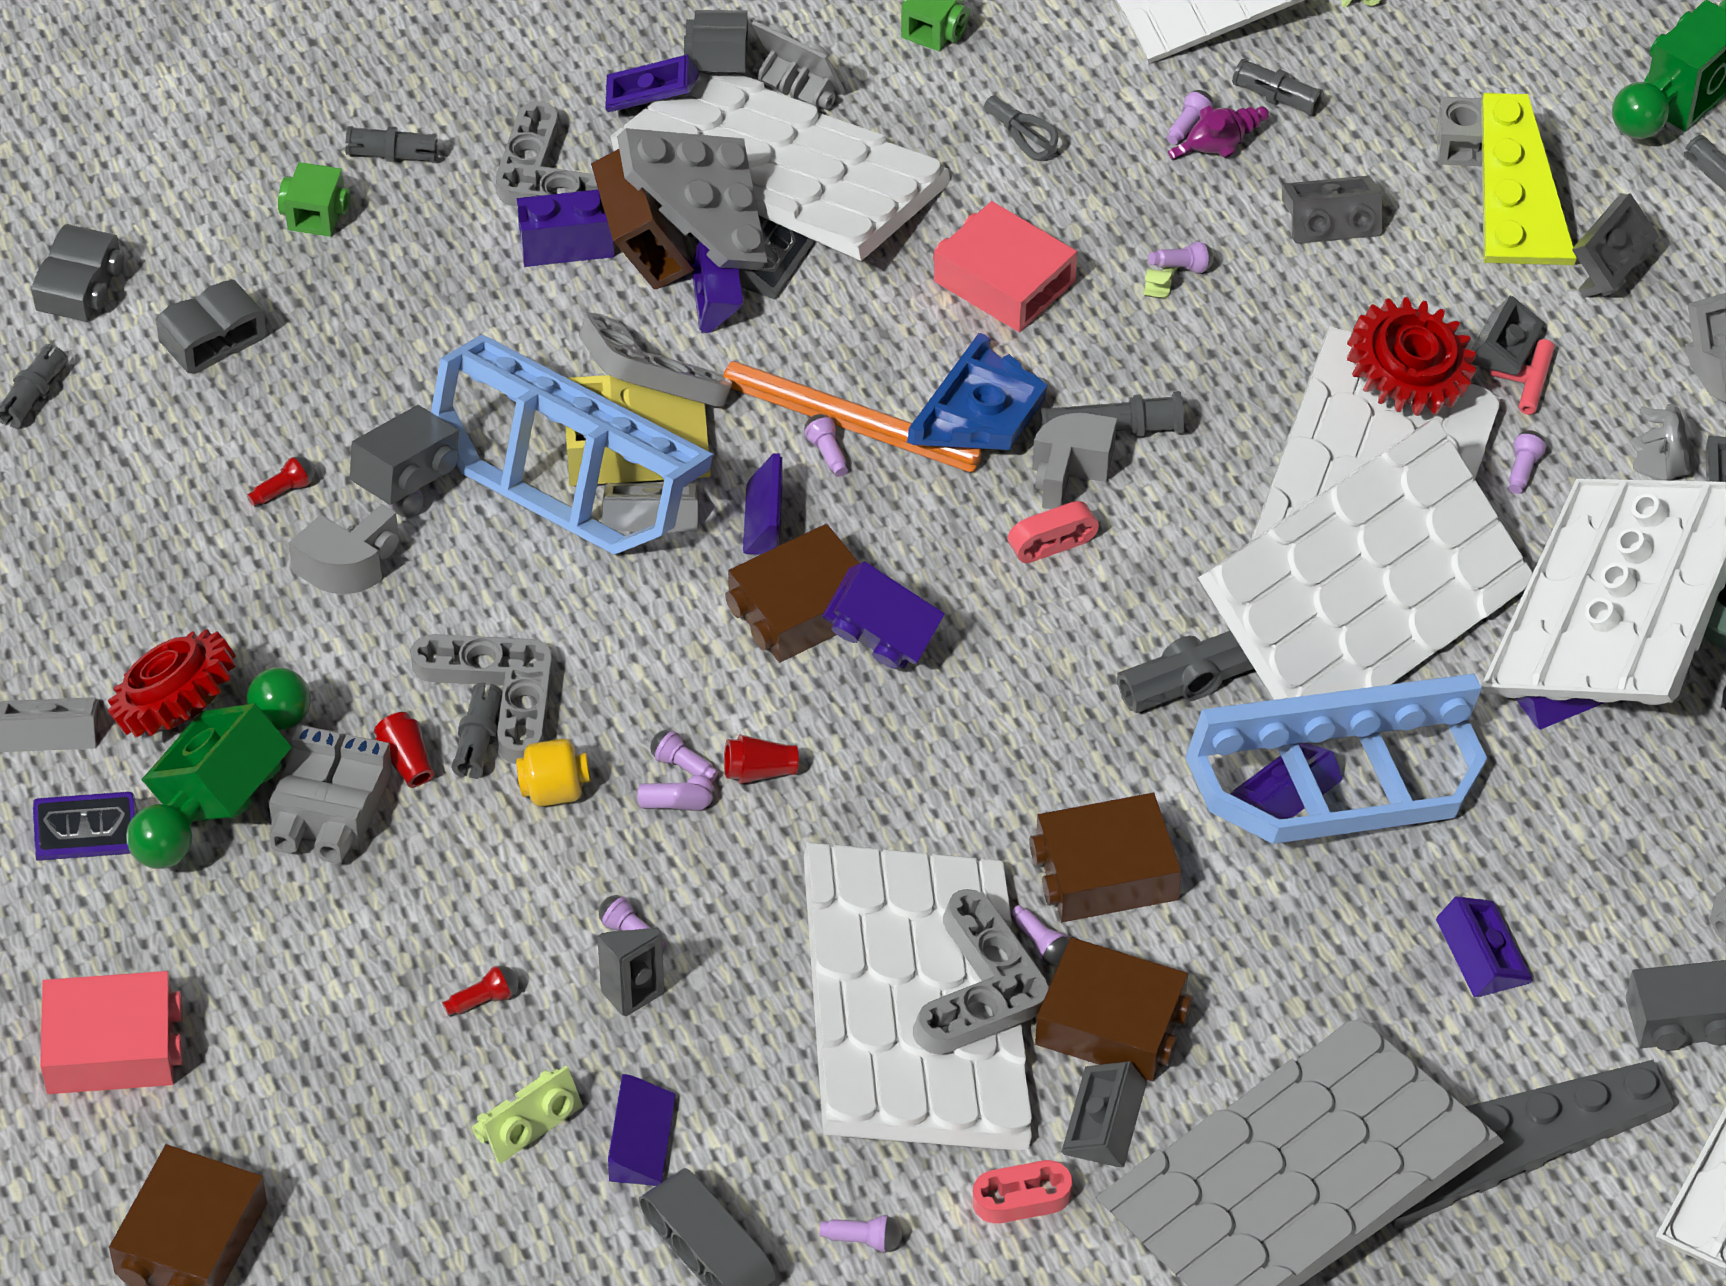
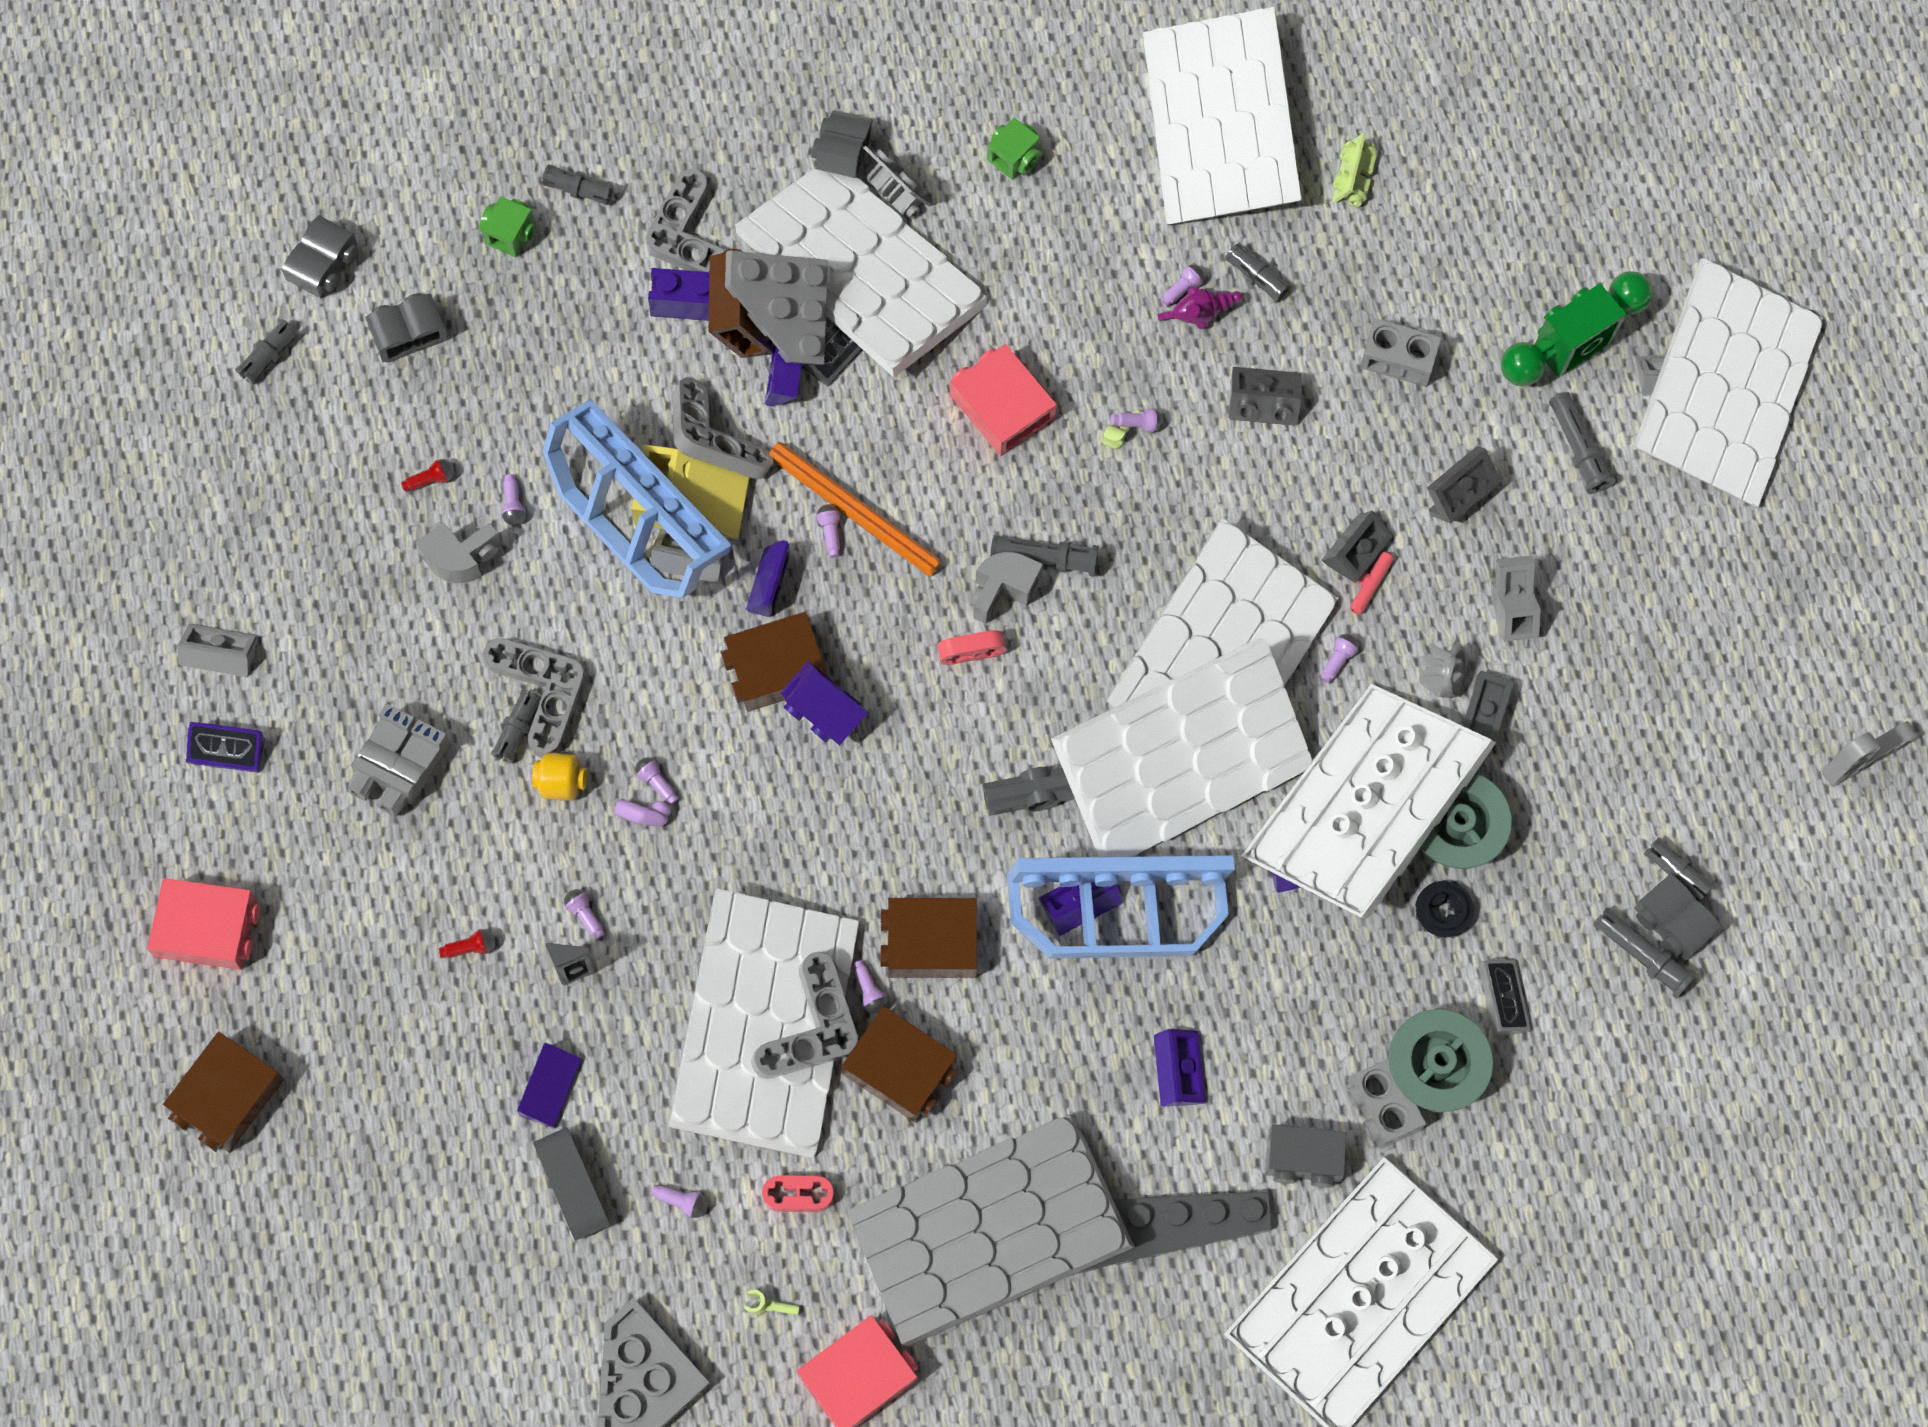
camera: 10 degrees right, 20 degrees up
(172, 683) = (306, 646): red gear -> none
(217, 766) = (321, 726): green brick -> none
(404, 454) = (516, 481): dark grey brick -> none
(406, 747) = (461, 731): red cone -> none
(531, 1115) = (490, 1047): yellowish green hinge -> none
(650, 83) = (780, 175): dark purple slope -> none
(758, 759) = (708, 797): red cone -> none
(980, 402) = (950, 521): blue wing -> none
(1014, 122) = (1050, 260): dark grey piece -> none
(1105, 1114) = (873, 1143): dark grey slope -> none
(1411, 356) = (1288, 547): red gear -> none
(1519, 194) = (1407, 418): neon yellow wing -> none

